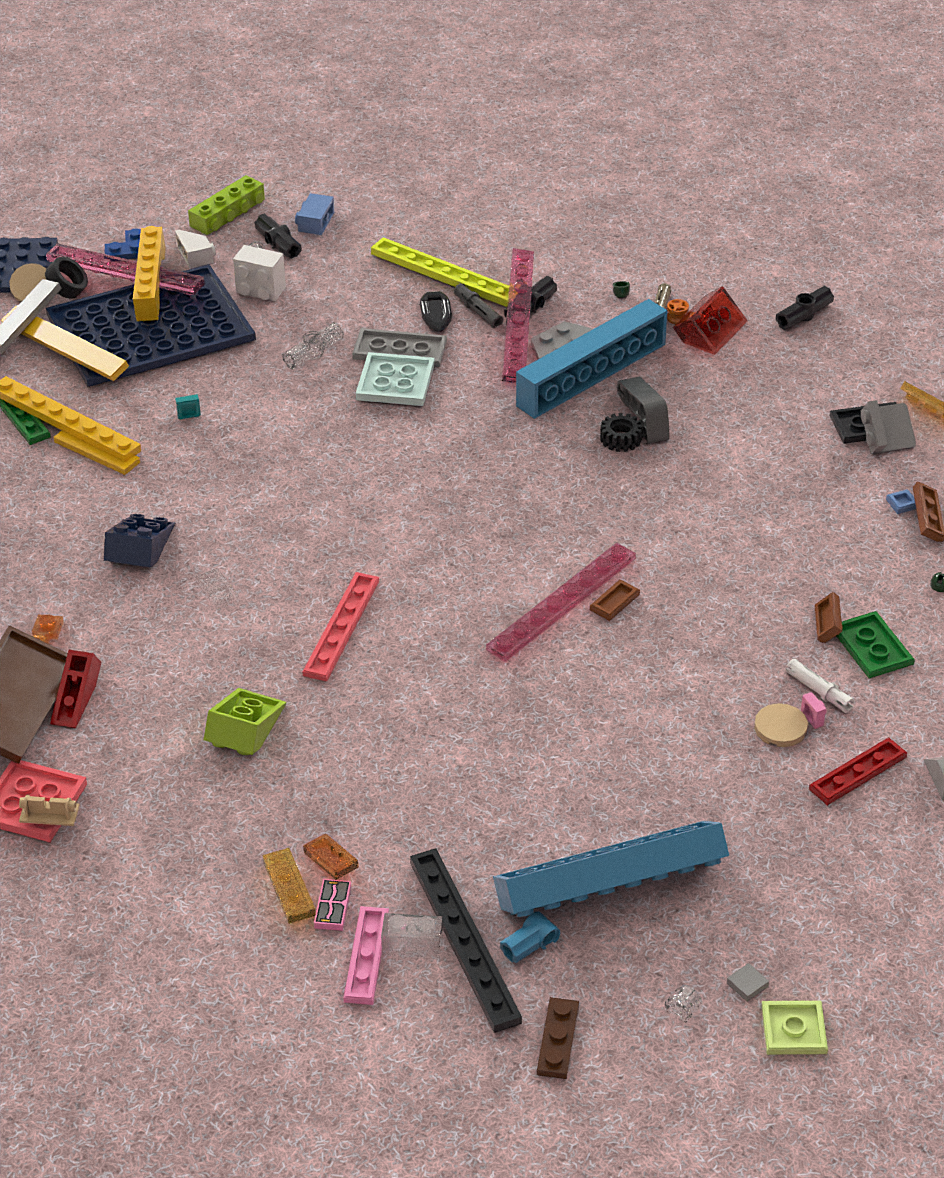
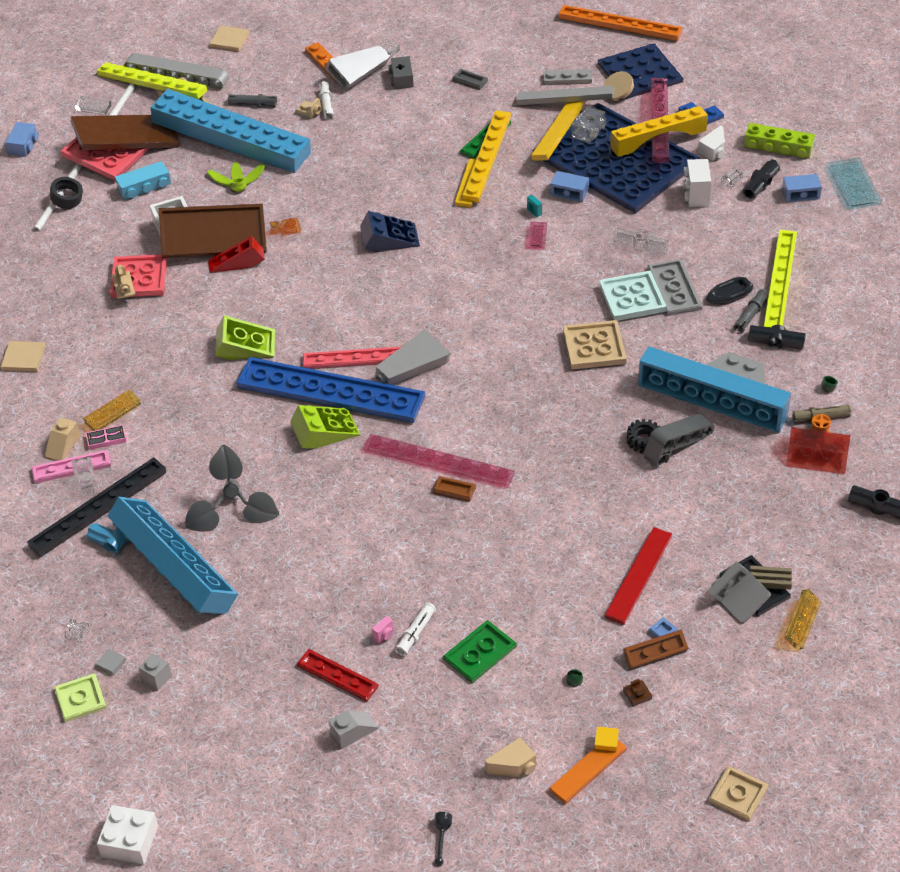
camera: 70 degrees right, 5 degrees up
(73, 271) = (640, 88): black tyre -> none
(90, 320) = (588, 124): none -> clear brick
(104, 966) = (23, 356): none -> tan tile
(176, 370) = (569, 186): none -> medium blue brick
(235, 421) = (537, 235): none -> clear pink tile
(315, 948) = (62, 439): none -> tan slope
(330, 182) = (853, 183): none -> clear light blue tile
(330, 856) = (142, 421): clear orange plate -> none
(383, 664) = (331, 389): none -> blue plate
(387, 573) = (412, 359): none -> light grey slope
(449, 683) = (322, 425): none -> lime slope
(454, 428) = (594, 344): none -> tan plate
(514, 759) = (227, 465): none -> dark grey plant
(517, 313) = (745, 330): clear pink plate -> none
(558, 1038) = (33, 578): reddish brown plate -> none
(781, 725) = (363, 616): tan tile -> none
(792, 933) = (155, 671): none -> light grey brick
(819, 496) = (638, 576): none -> red tile
(828, 617) = (490, 614): dark orange tile -> none
(885, 397) = (772, 576): none -> dark tan tile

